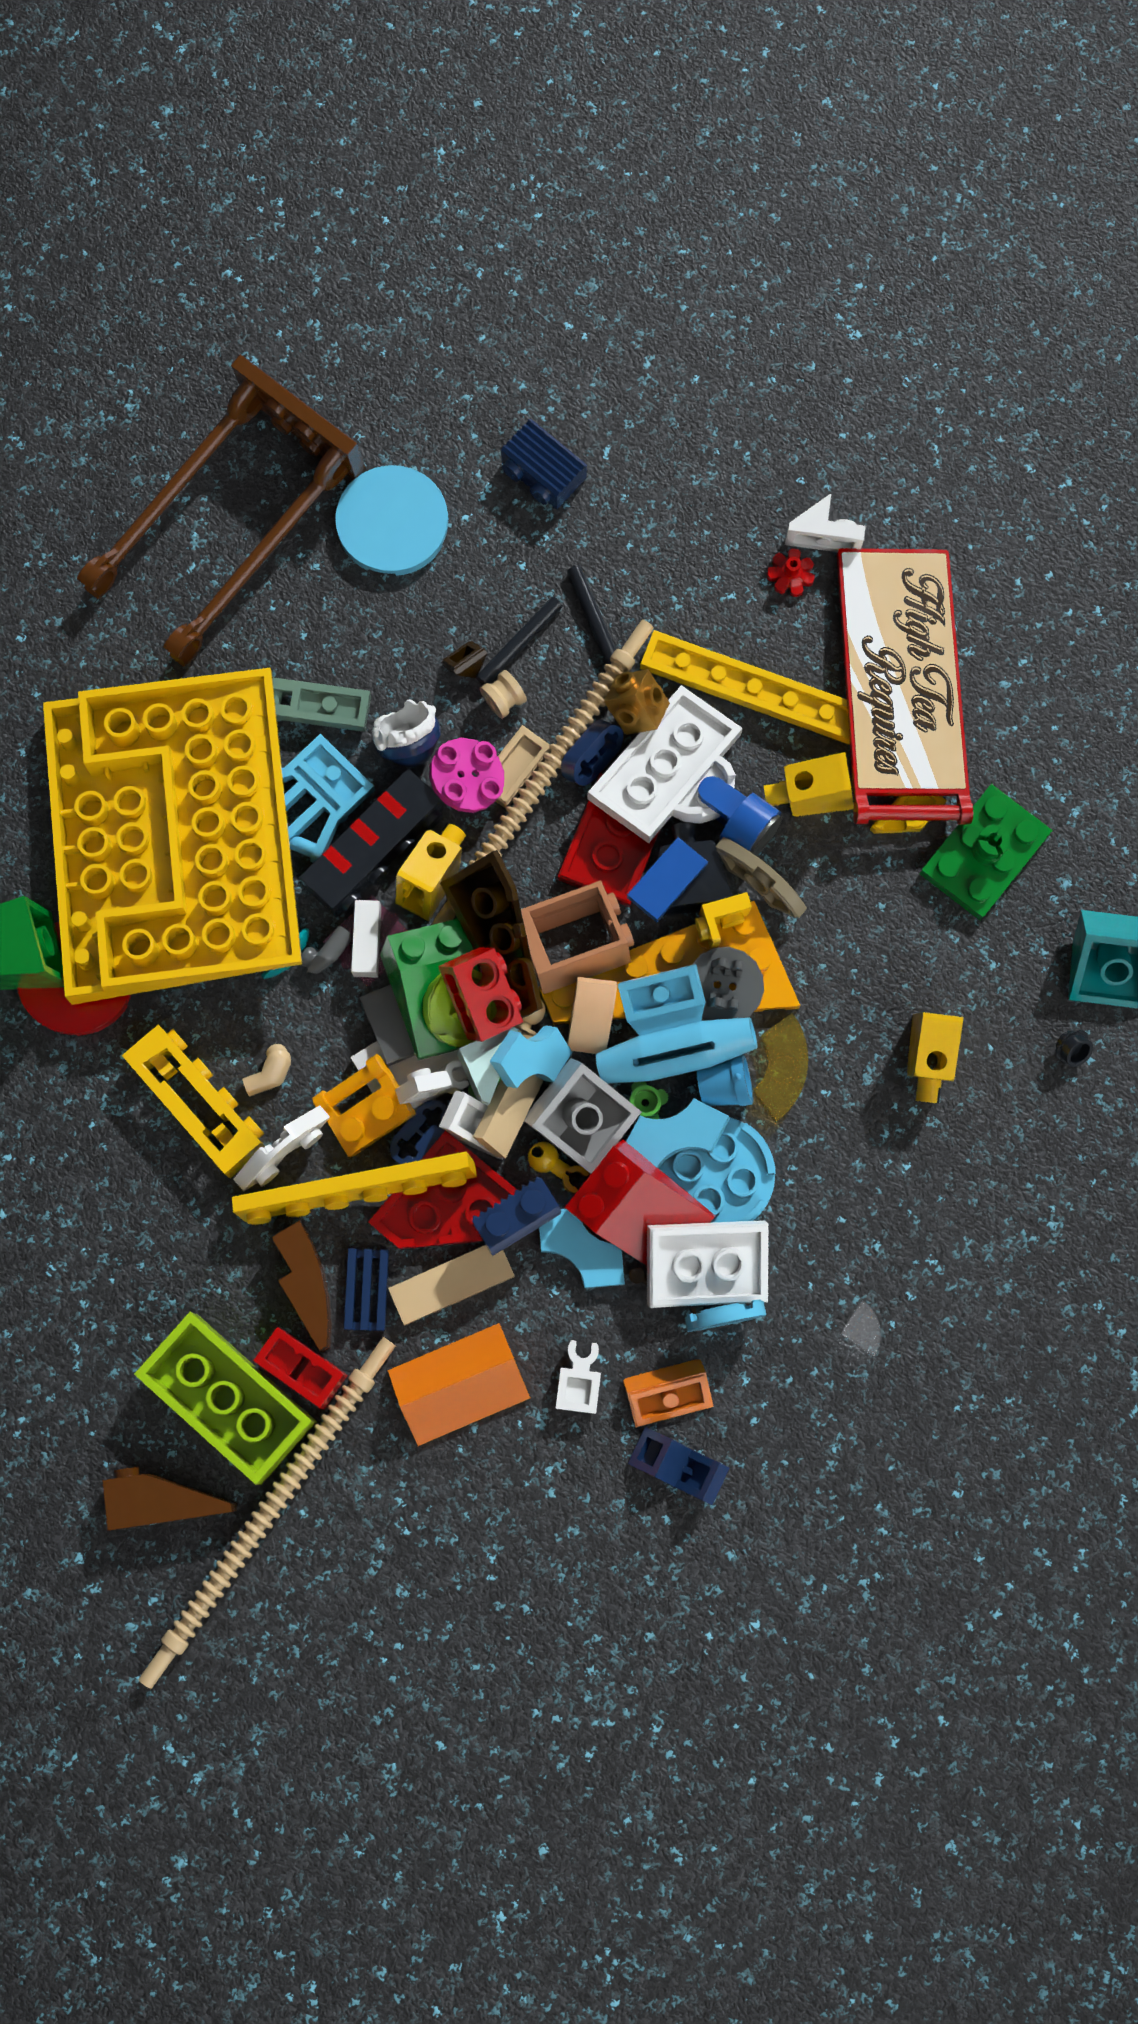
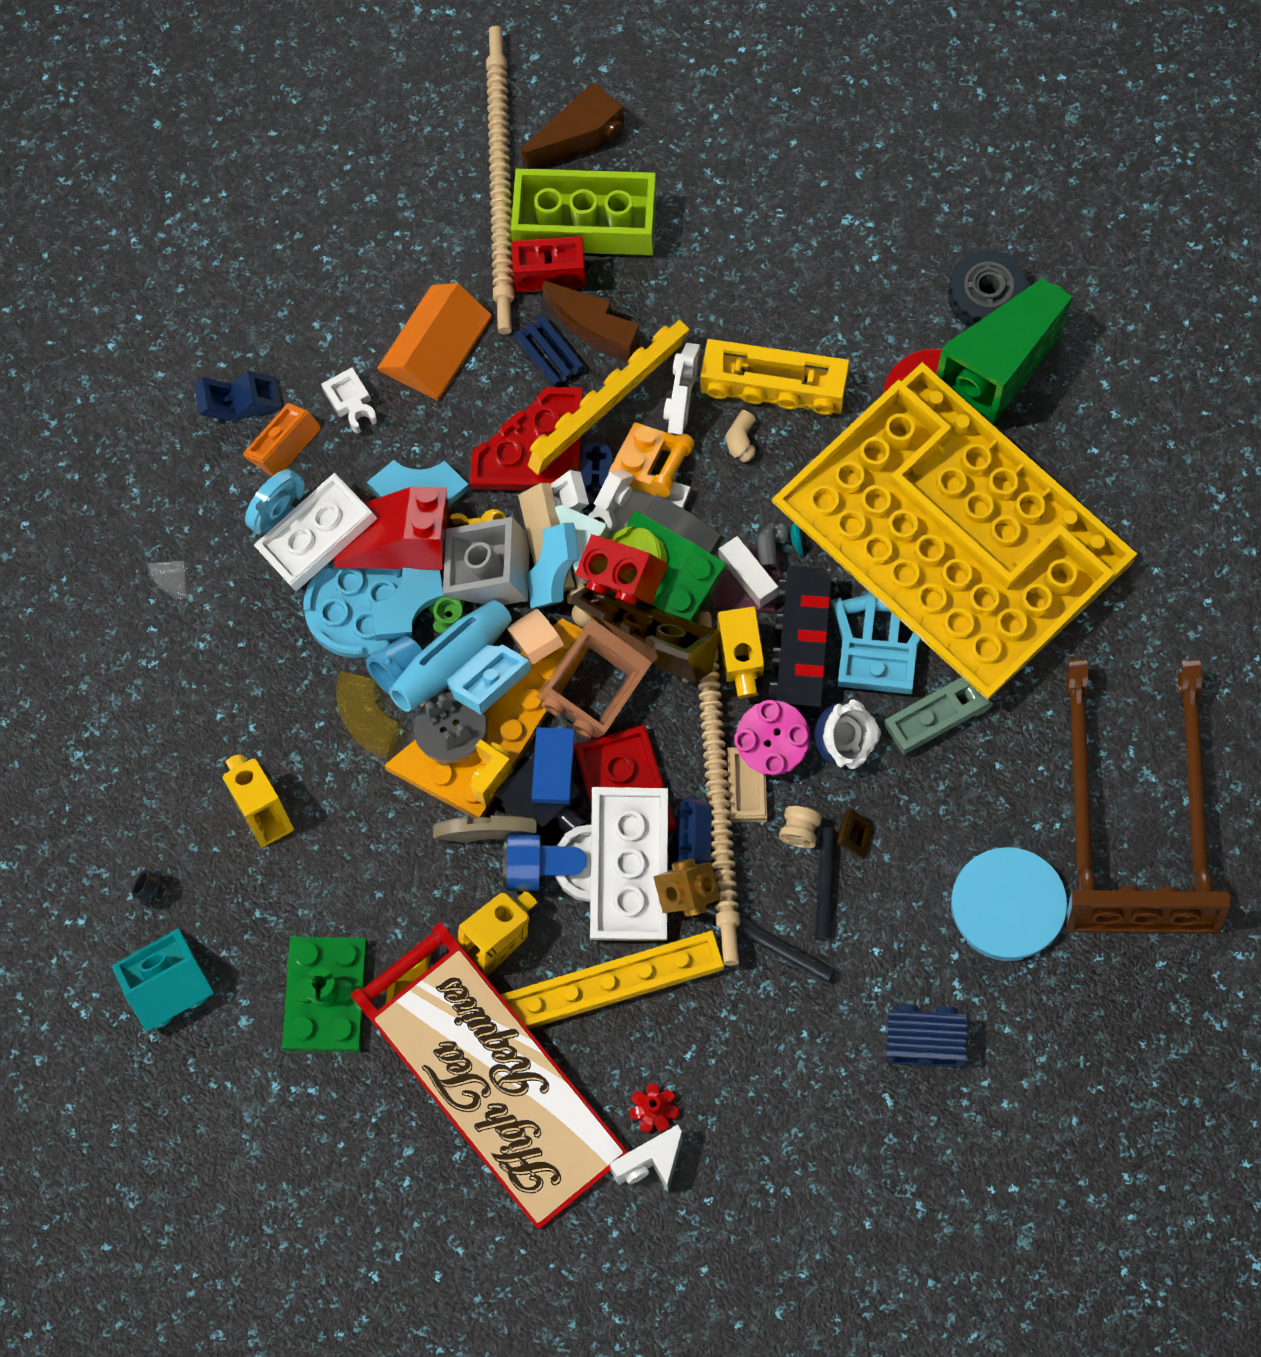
camera: 150 degrees right, 10 degrees down
(449, 1283) = (492, 398): tan tile -> none
(516, 1216) = (476, 455): dark blue brick -> none

